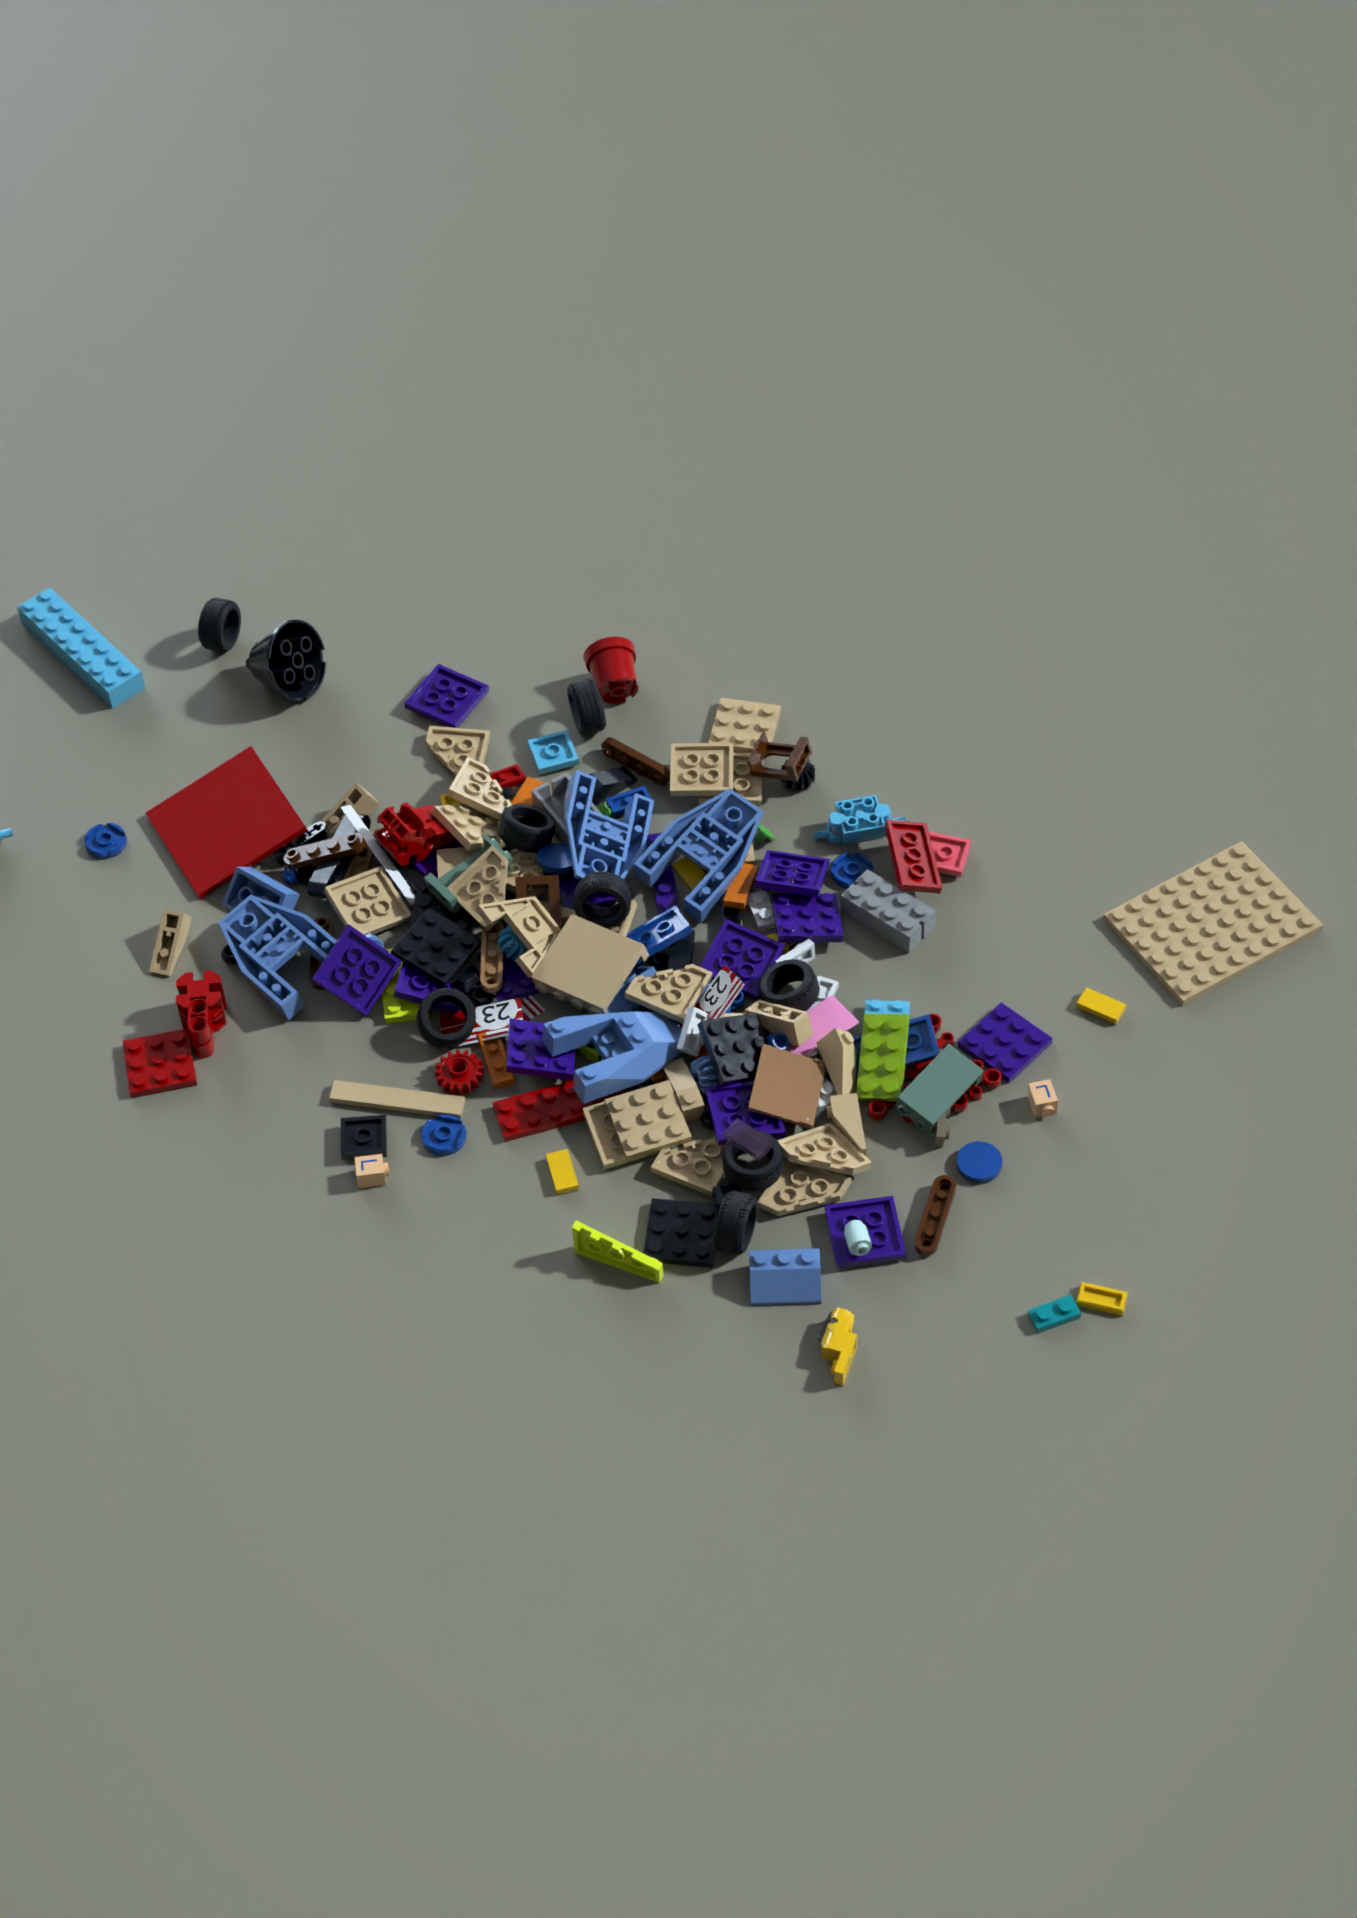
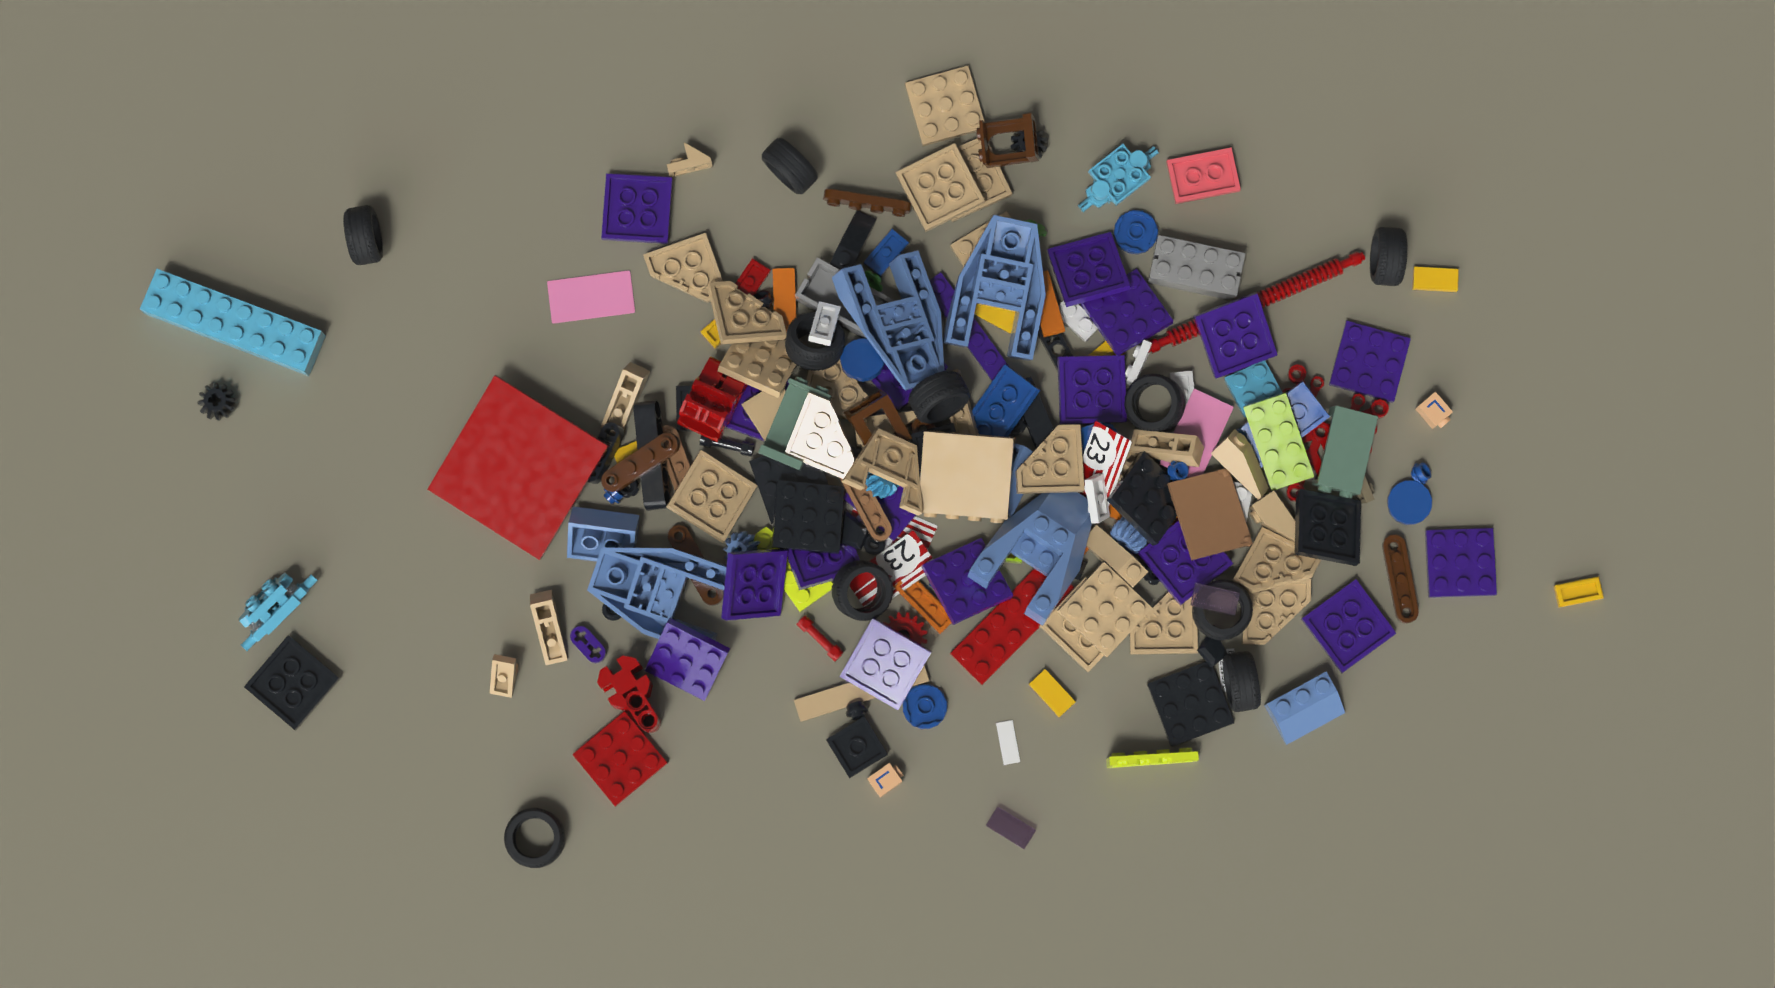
camera: 30 degrees left, 30 degrees up
(29, 692) = (226, 399): none -> black gear
(43, 1067) = (510, 837): none -> black tyre
(105, 841) = (407, 538): blue tile -> none
(108, 959) = (503, 675): none -> tan slope
(197, 969) = (591, 641): none -> dark purple beam
(264, 1004) = (687, 659): none -> dark purple plate
(289, 660) = (463, 252): black cone -> none
(369, 742) = (591, 297): none -> bright pink sticker
(379, 853) = (693, 438): white sticker -> none
(382, 1107) = (856, 710): none -> black plate
(393, 1058) = (806, 624): none -> red bar
(429, 1078) = (885, 663): none -> plate
(456, 1259) = (1010, 828): none -> clear purple tile
(499, 1194) = (1008, 742): none -> white sticker
(509, 684) = (695, 162): none -> tan slope
(540, 811) = (824, 323): none -> white plate
(553, 752) = (780, 227): medium azure plate -> none
(612, 668) = (789, 106): red piece -> none
(838, 1342) = (1382, 751): yellow plate -> none
(857, 1238) = (1352, 643): light aqua brick -> none
(889, 1140) = (1327, 527): none -> black plate
(892, 968) = (1235, 335): none -> dark purple plate
(913, 856) = (1193, 199): red plate -> none
(1000, 1228) = (1460, 562): none -> dark purple plate
(1003, 1141) = (1421, 473): none -> blue plate
(1034, 961) = (1269, 295): none -> red hose
(1054, 1314) = (1546, 627): teal plate -> none
(1063, 961) = (1388, 256): none -> black tyre
(1212, 922) = (1490, 134): tan plate -> none

